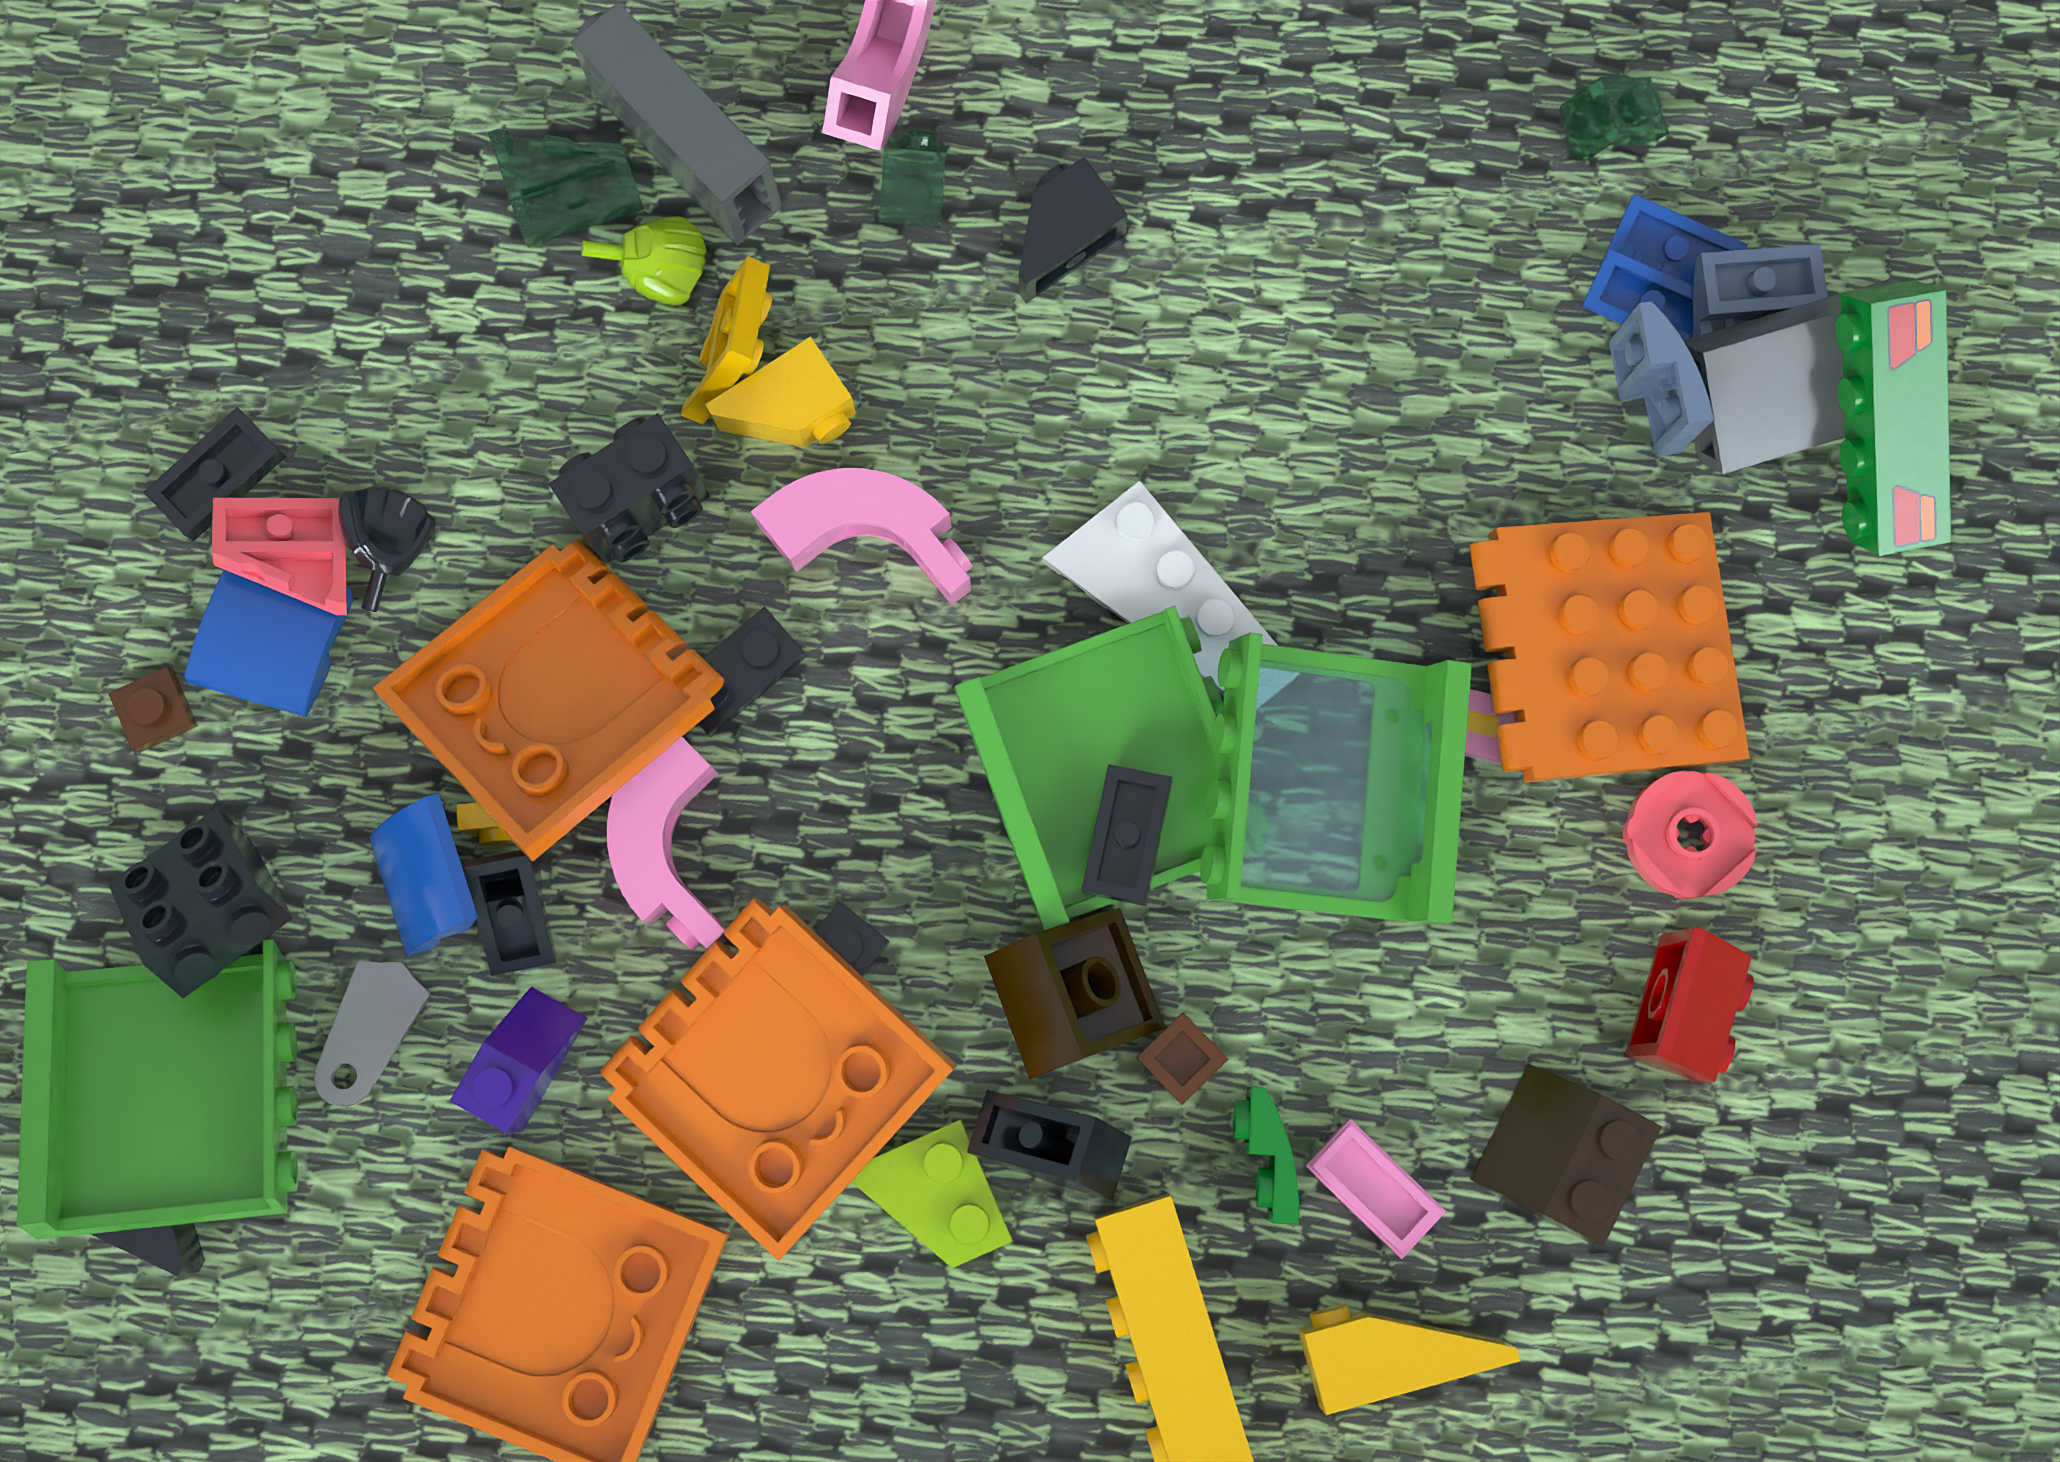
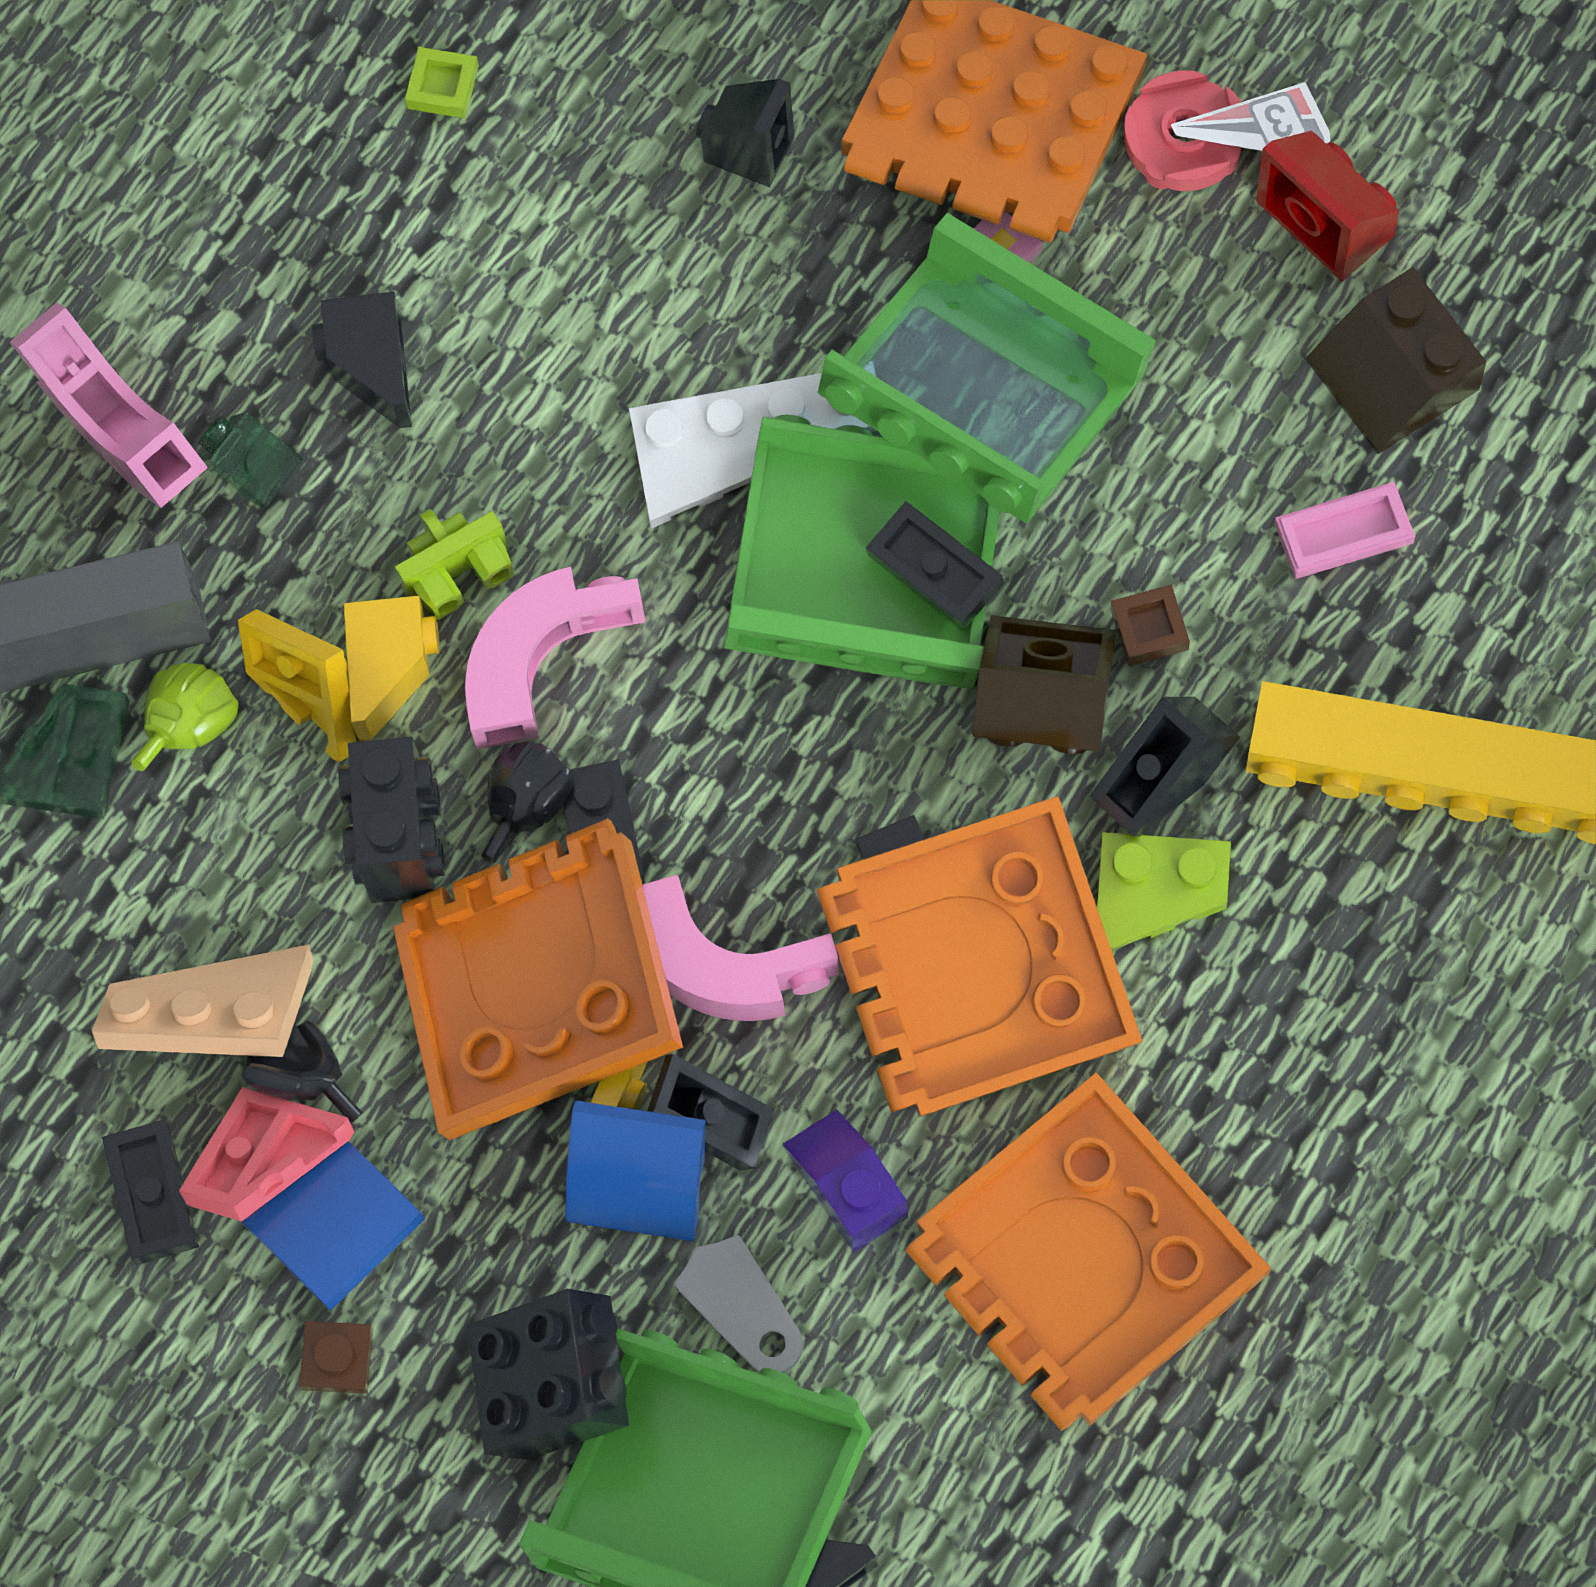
camera: 55 degrees left, 10 degrees down
(397, 432) = (209, 1008): none -> light nougat wing
(730, 588) = (524, 792): none -> black piece
(887, 395) = (447, 552): none -> lime hips
(1264, 1134) = (1249, 587): green slope -> none
(1364, 145) = (441, 82): none -> lime tile
(1377, 1357) = (1485, 588): yellow slope -> none
(1462, 438) = (749, 129): none -> black slope
(1737, 903) = (1258, 120): none -> sticker

